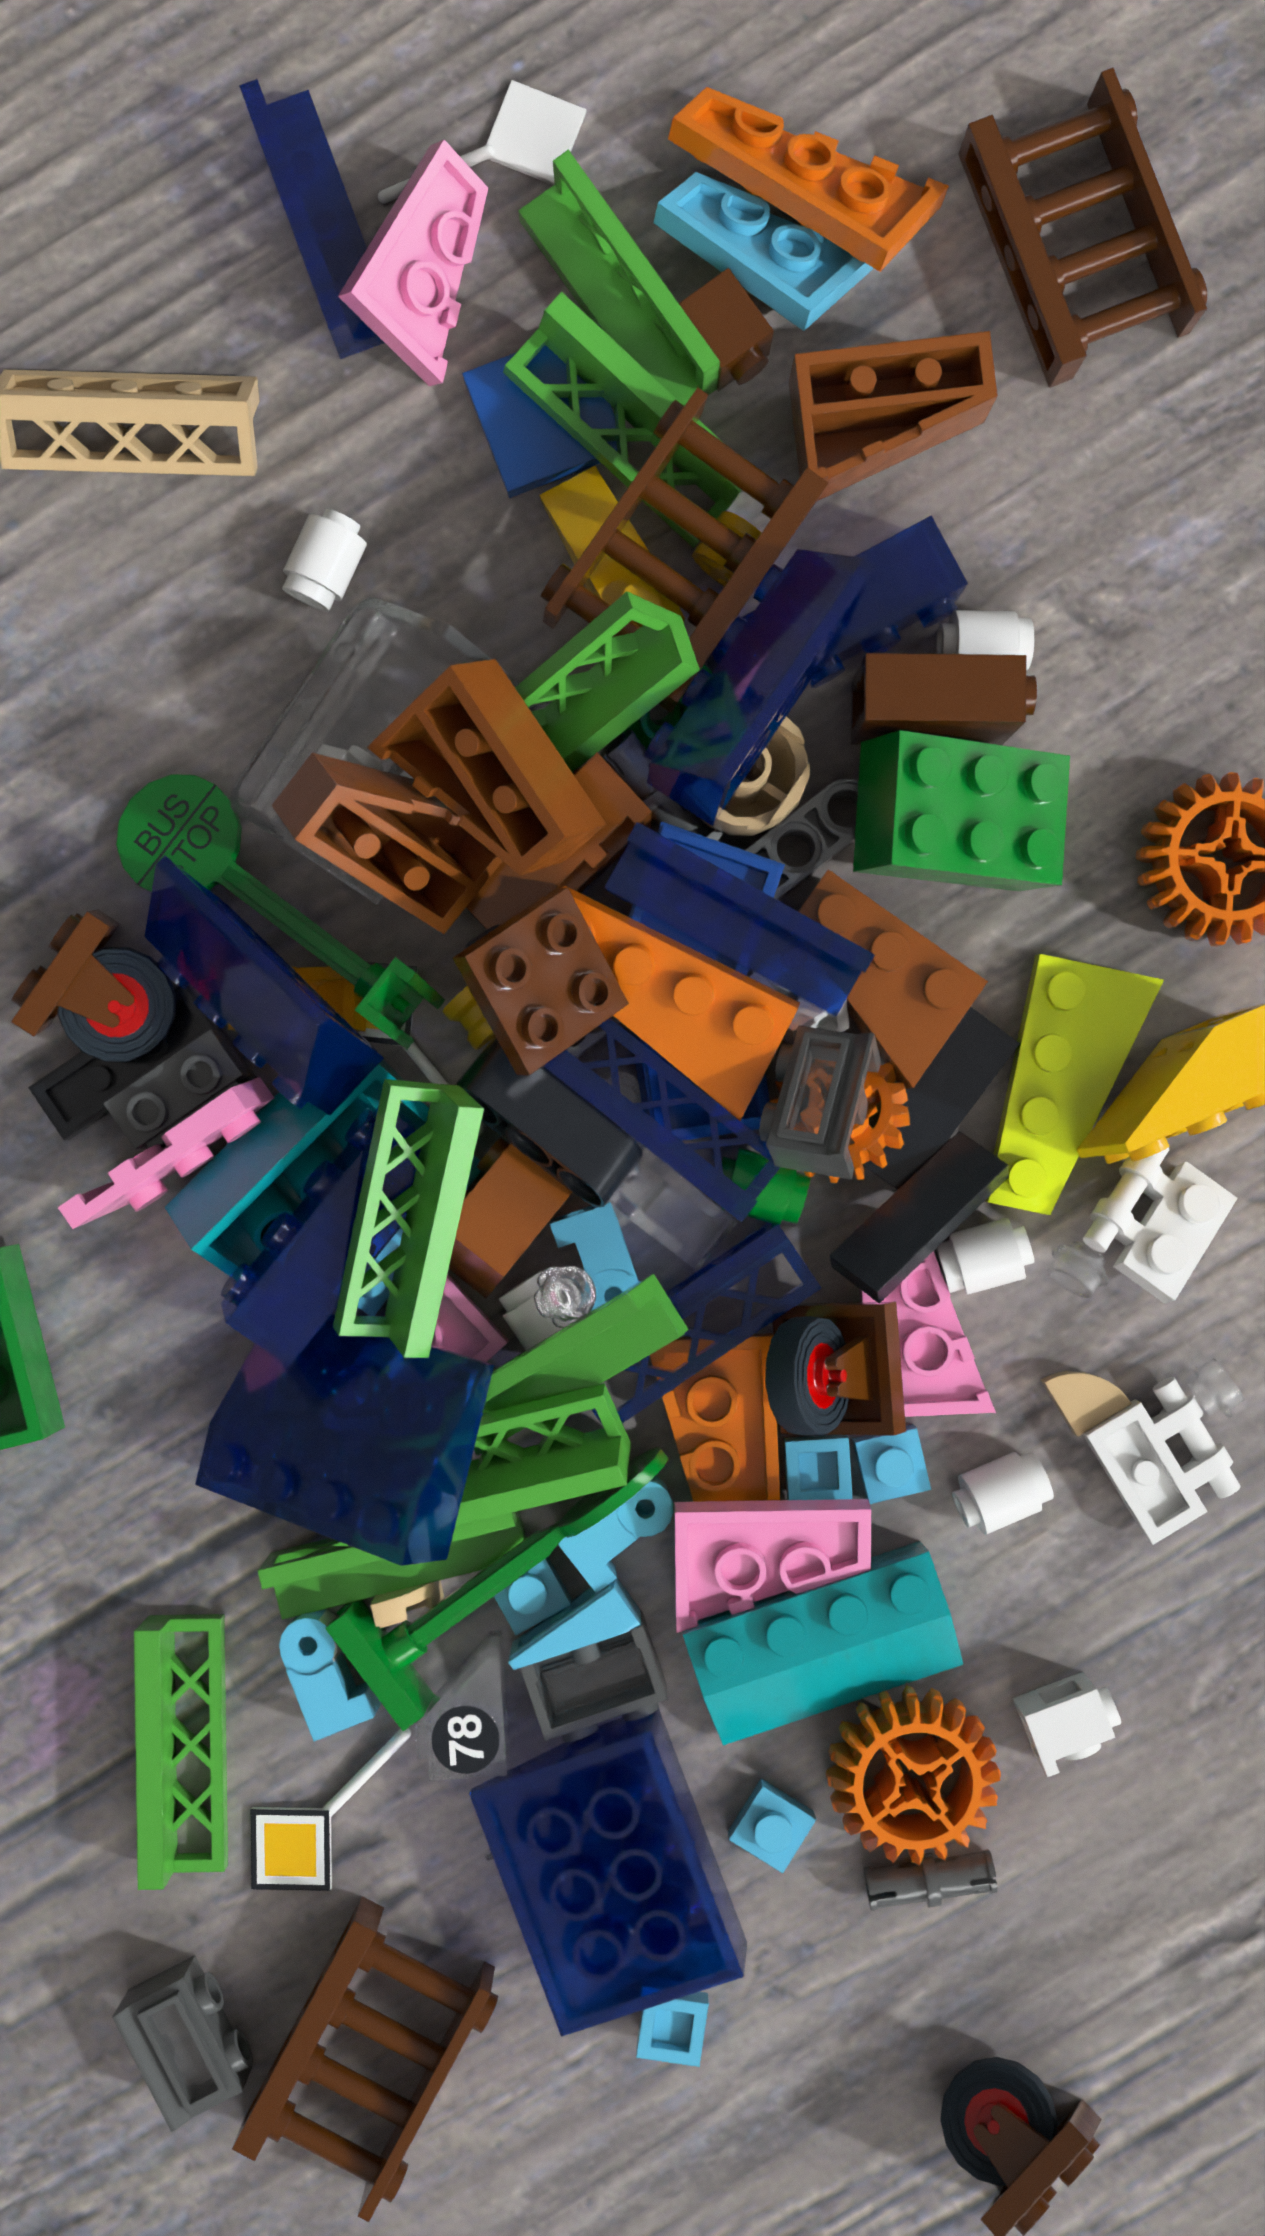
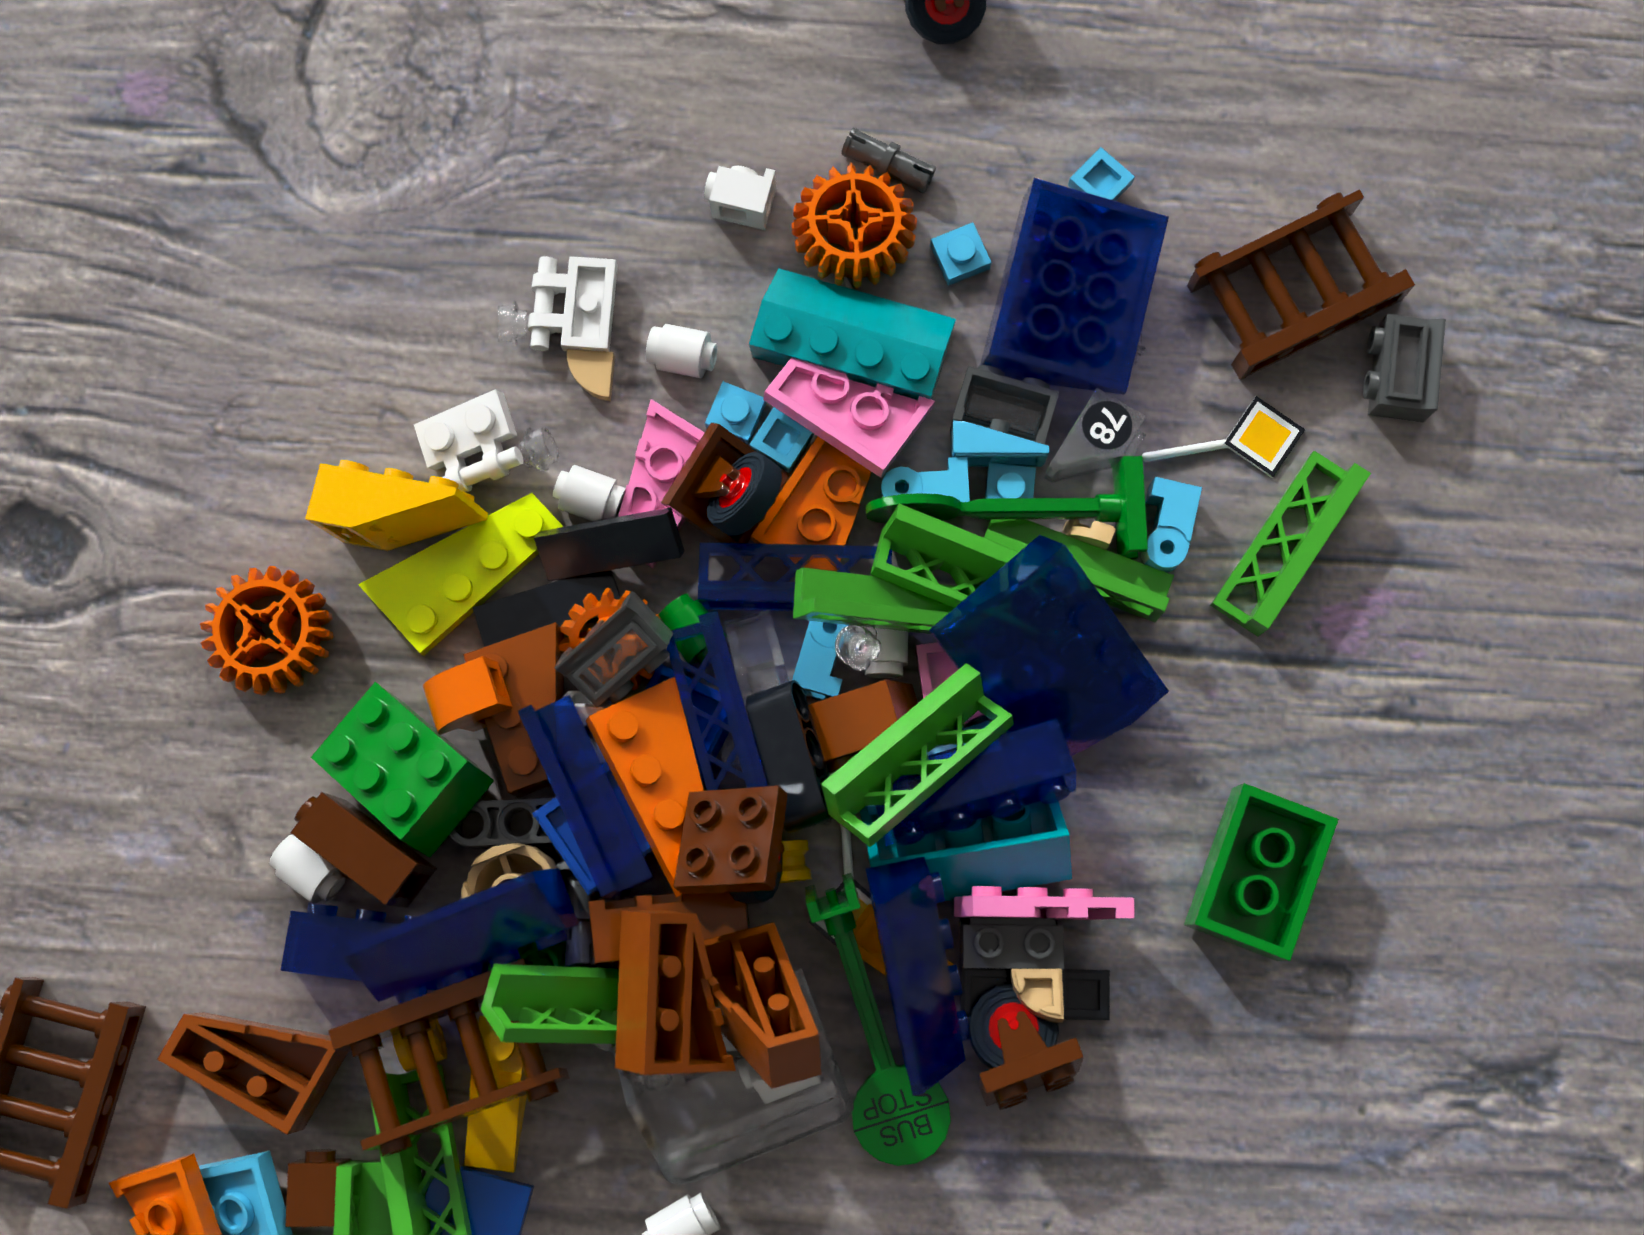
camera: 145 degrees left, 10 degrees down
(111, 1061) = (1040, 992): none -> tan tile
(948, 938) = (467, 695): none -> orange brick

